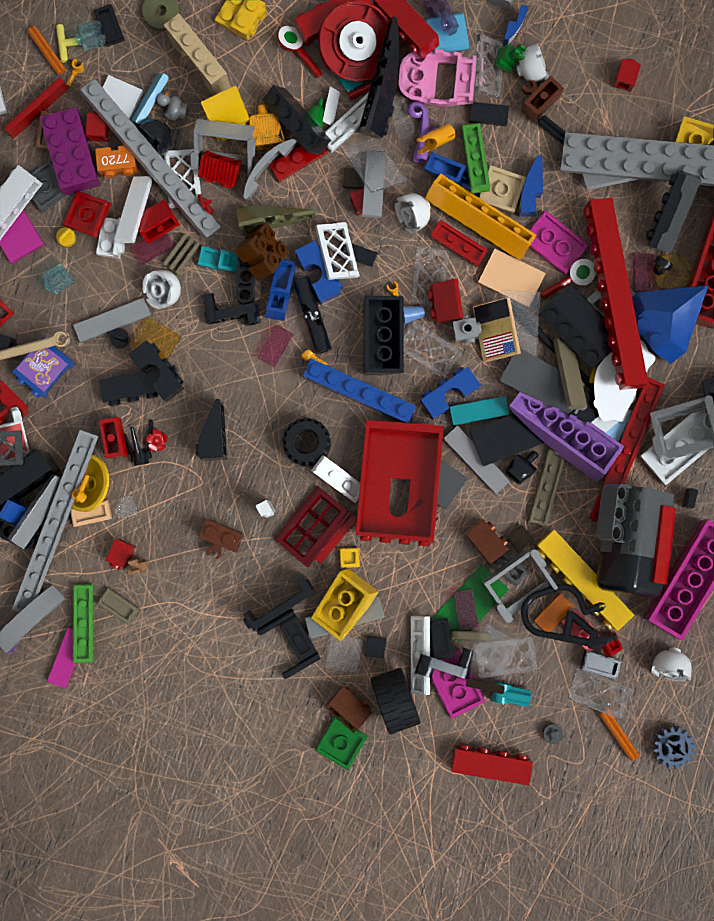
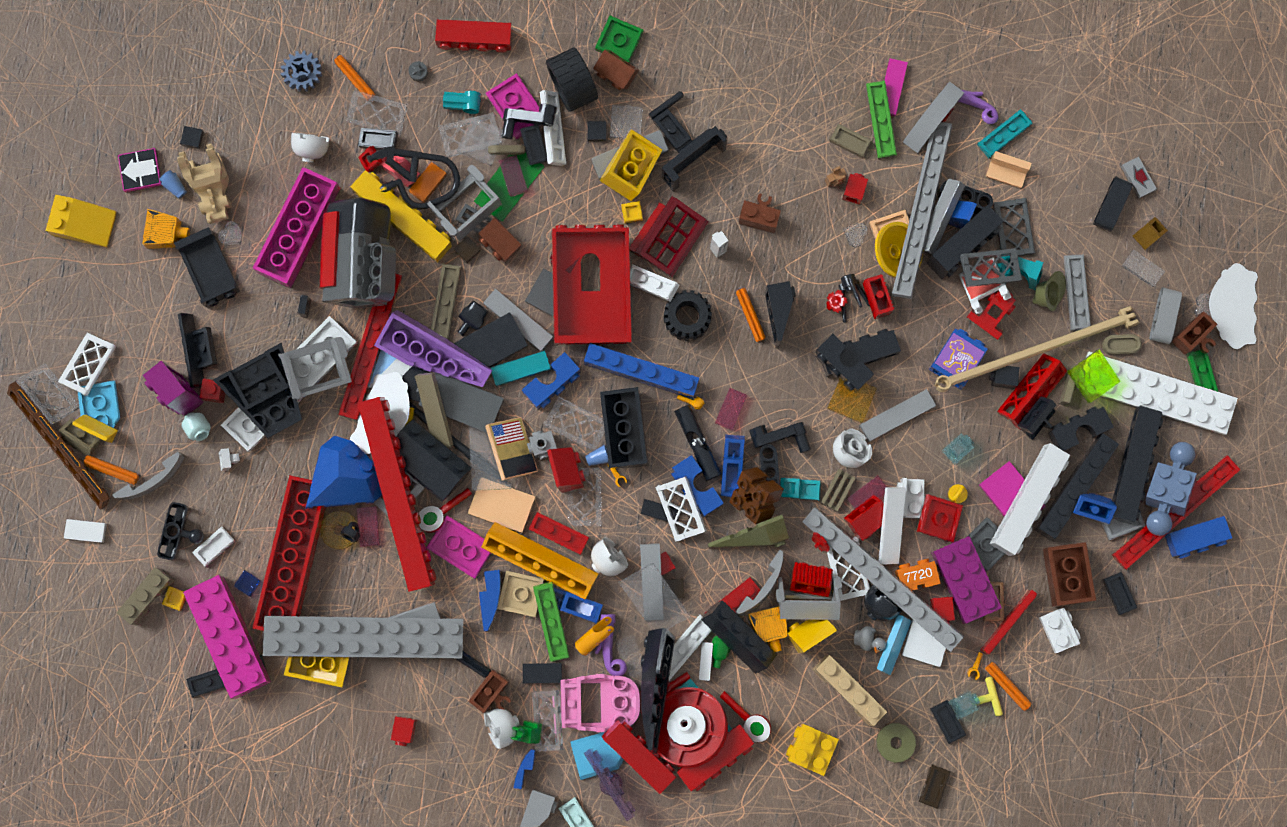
camera: 170 degrees right, 5 degrees down
(78, 493) = (903, 236): light orange hand -> none
(119, 338) = (888, 398): black tile -> none
(243, 437) = (750, 315): none -> orange axle
(485, 685) = (487, 104): dark brown tile -> none
(674, 210) = (344, 586): piece -> none

